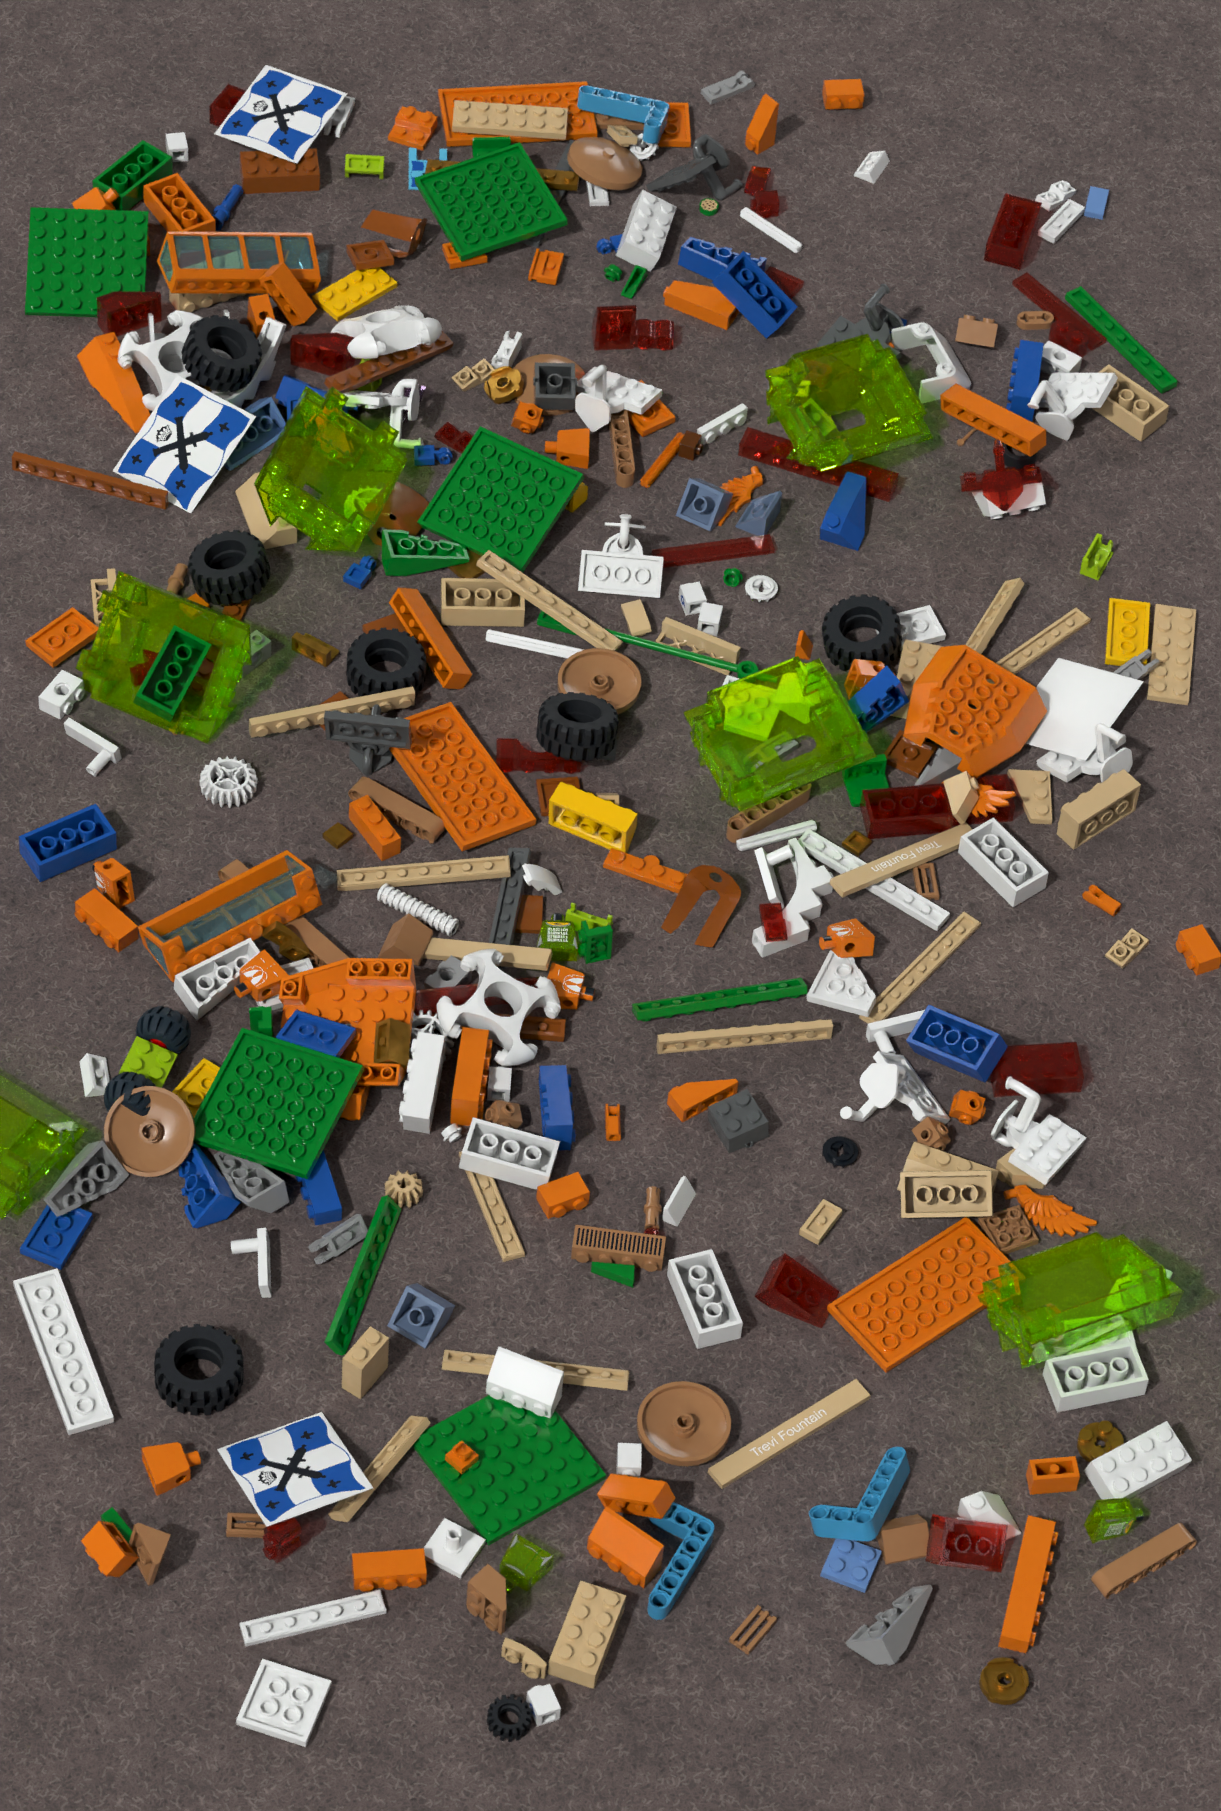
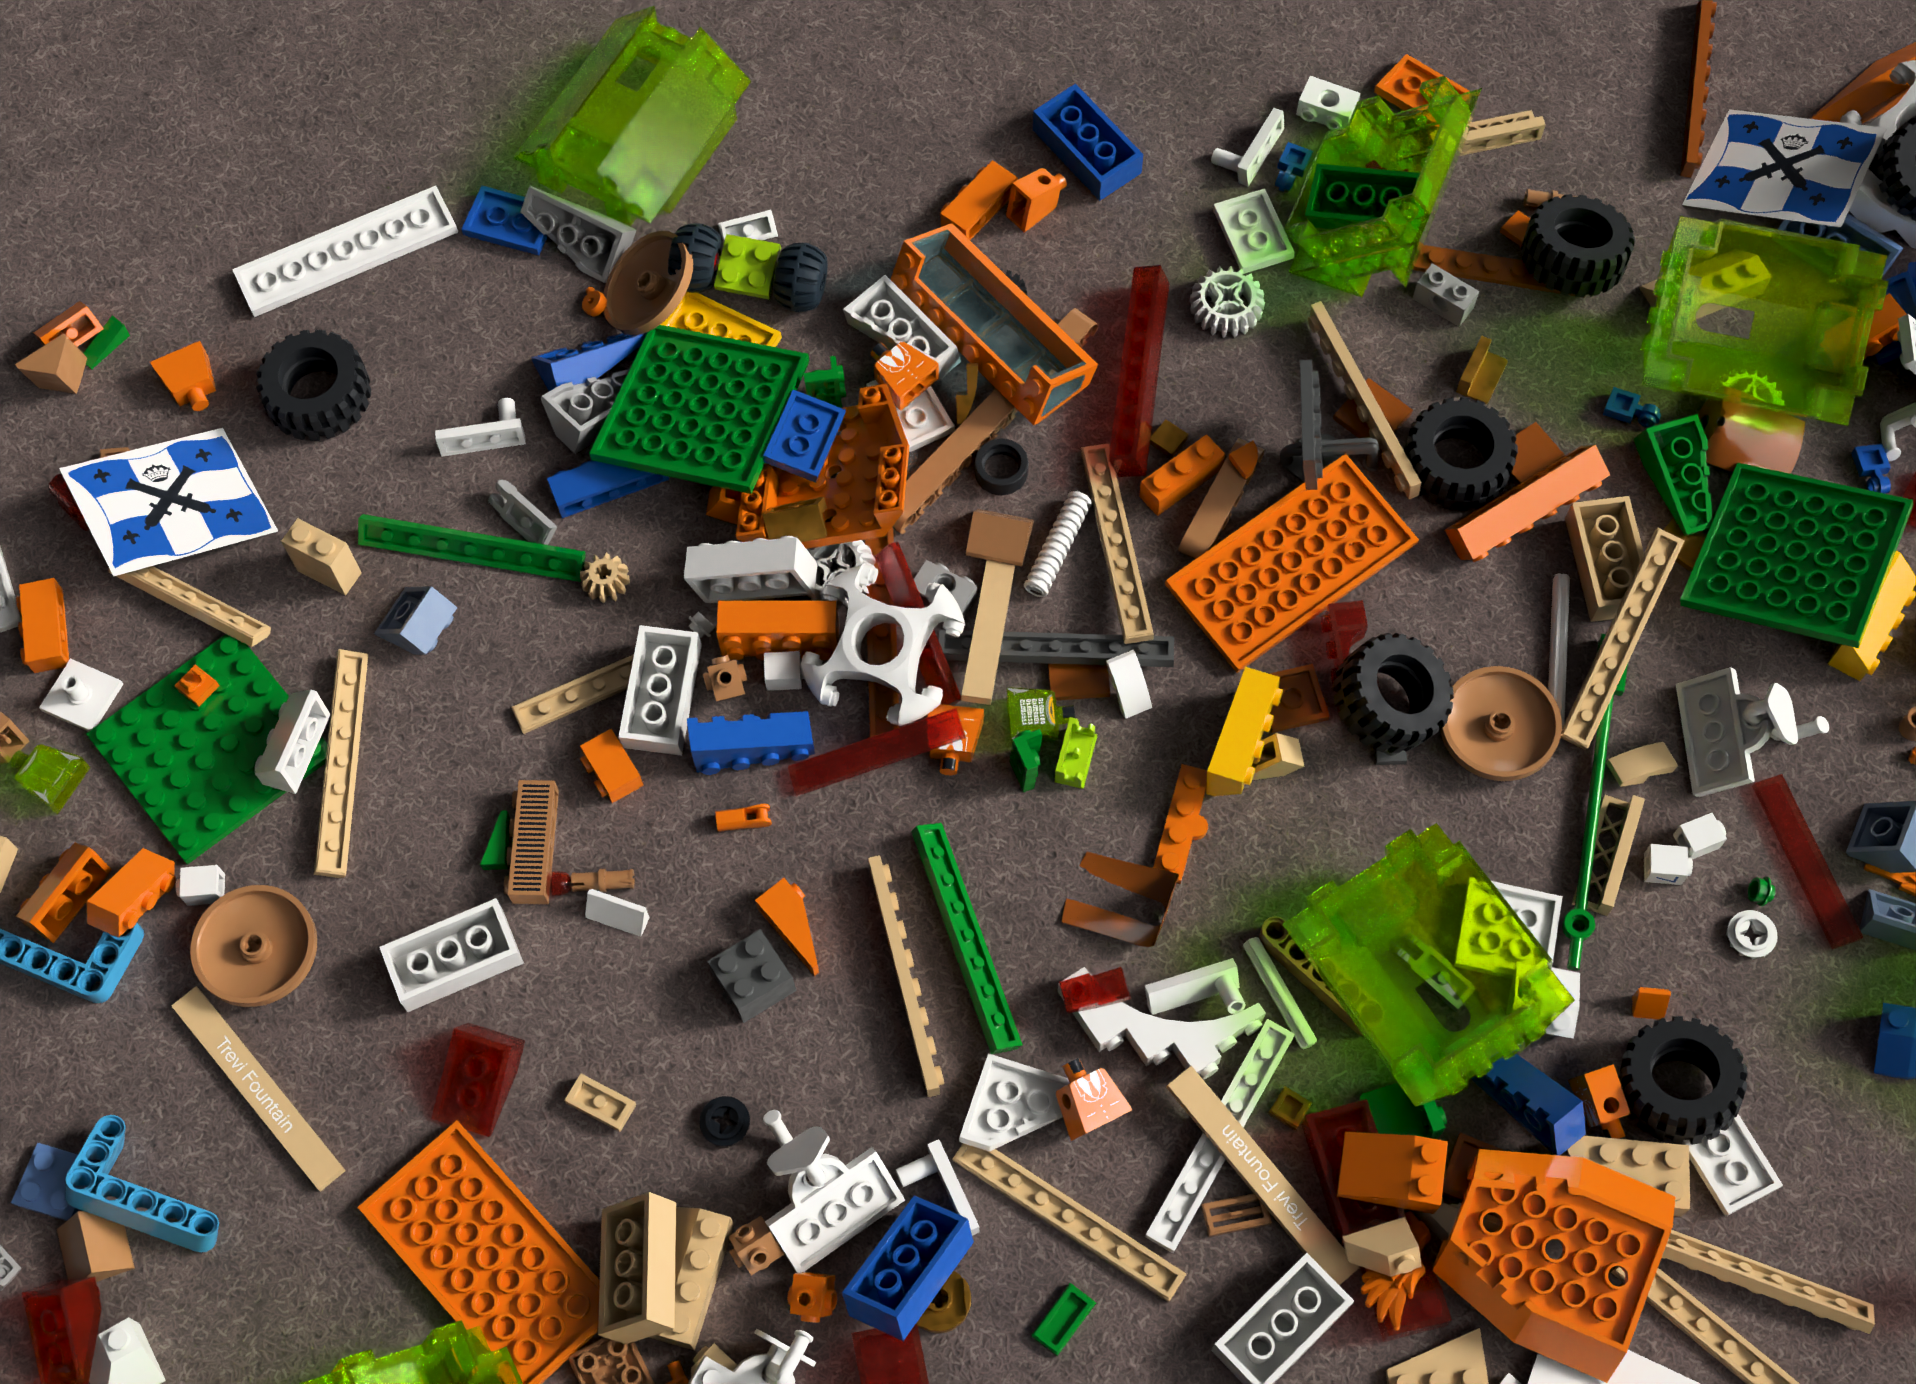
camera: 90 degrees right, 15 degrees up
(109, 723) = (1293, 161): none -> plate
(143, 1181) = (594, 302): none -> orange piece
(167, 757) = (1253, 231): none -> plate
(283, 837) = (1139, 371): none -> clear red brick
(351, 922) = (995, 485): none -> black tyre
(373, 784) = (1245, 459): none -> orange tile
(576, 1030) = (876, 752): none -> clear red tile
(914, 778) = (1393, 1170): none -> orange slope
(988, 981) = (1063, 1319): none -> green tile

